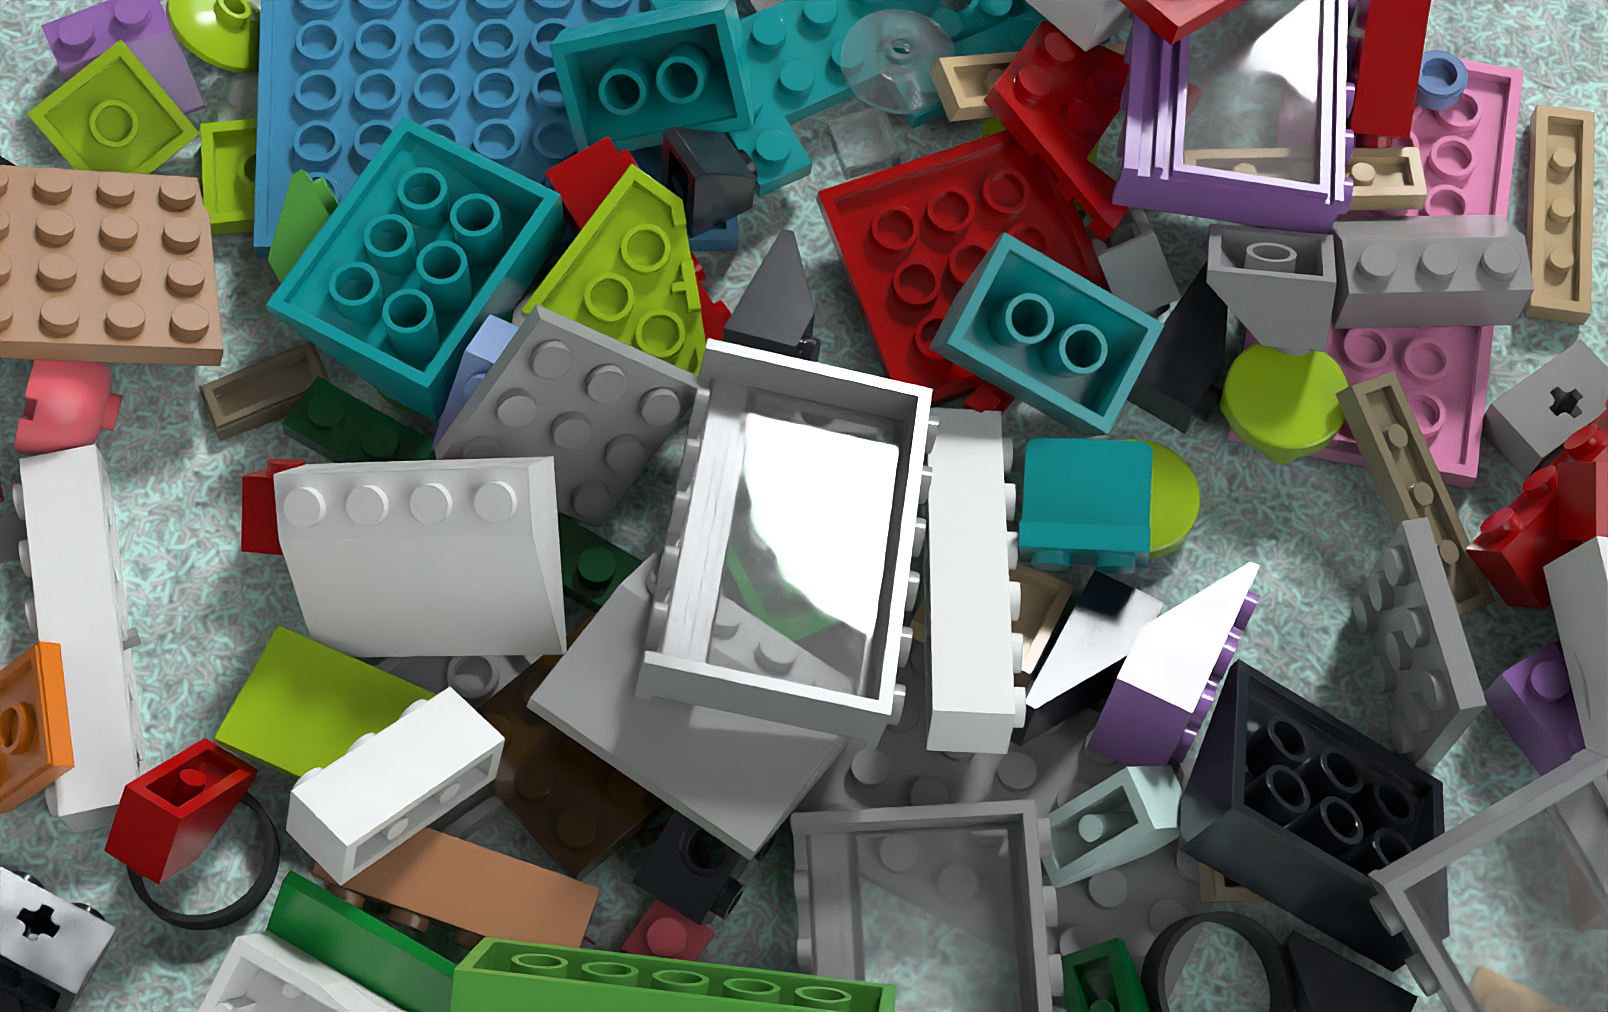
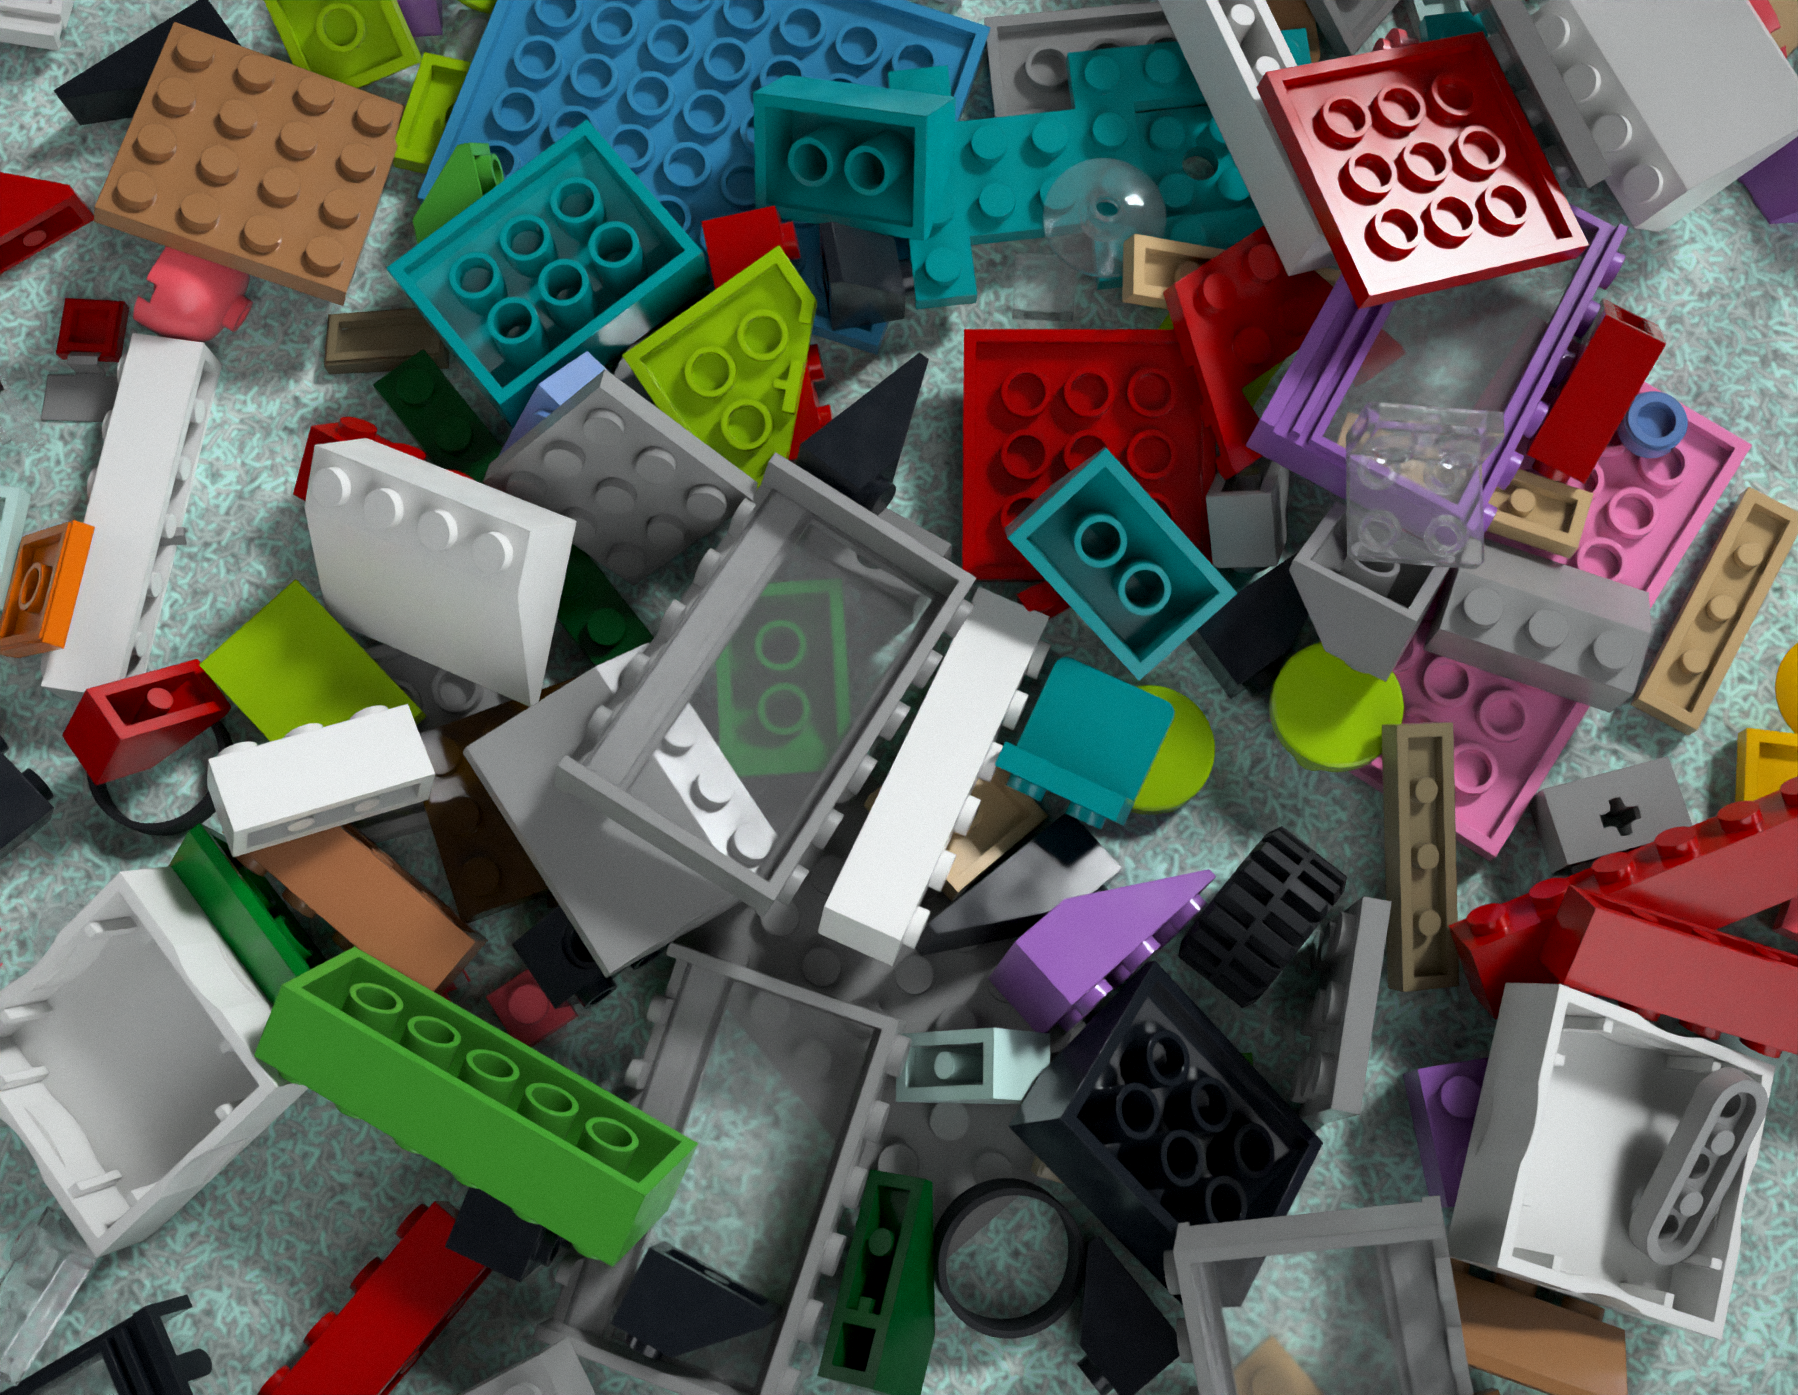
camera: 30 degrees right, 10 degrees up
(1282, 169) = (1418, 484): none -> clear bracket
(1309, 595) = (1262, 916): none -> black tyre

